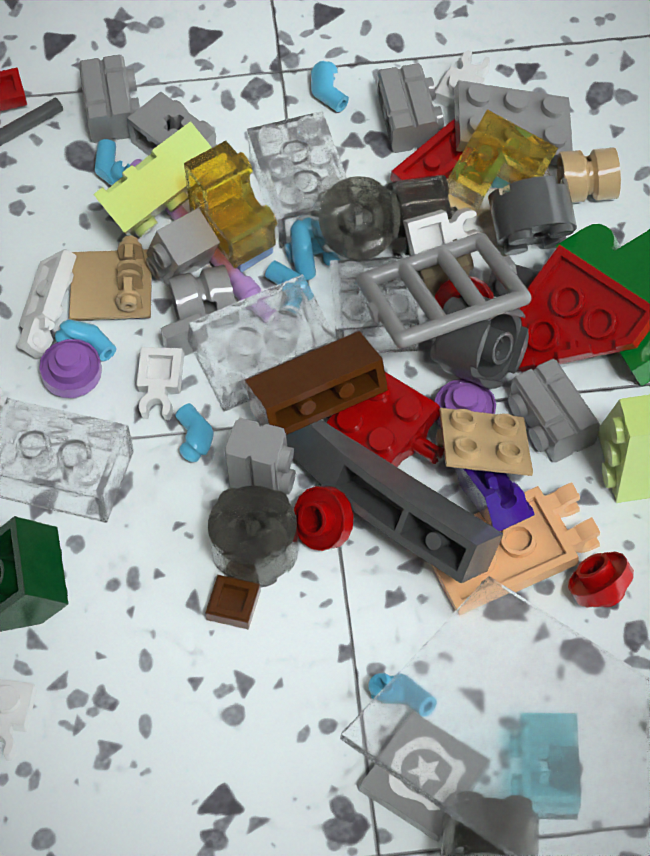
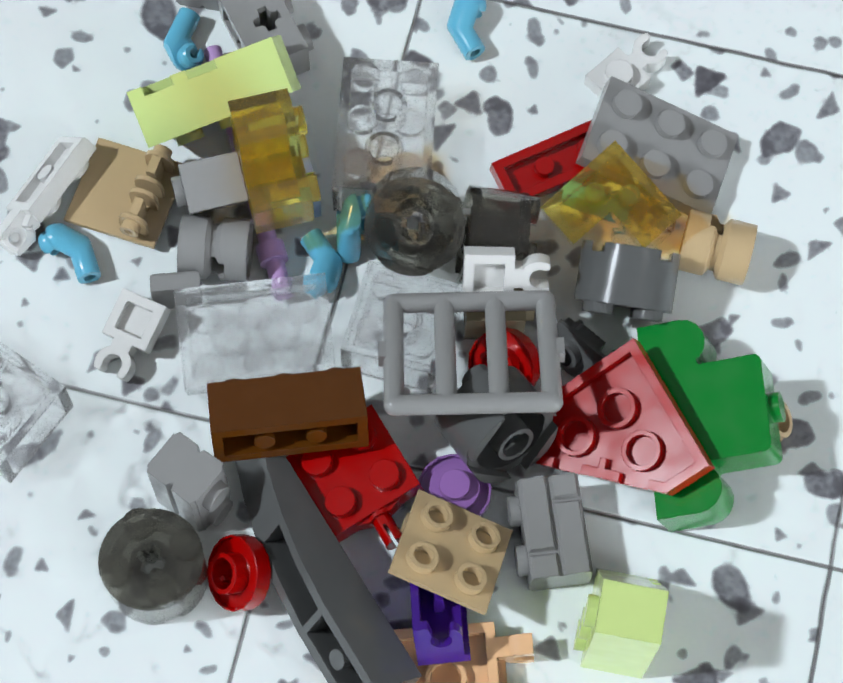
camera: 15 degrees right, 10 degrees up
(70, 368) = (39, 283): medium lavender plate -> none
(198, 435) = (148, 415): medium azure arm -> none
(233, 602) = (106, 632): reddish brown tile -> none
(408, 106) = (545, 85): light grey brick -> none

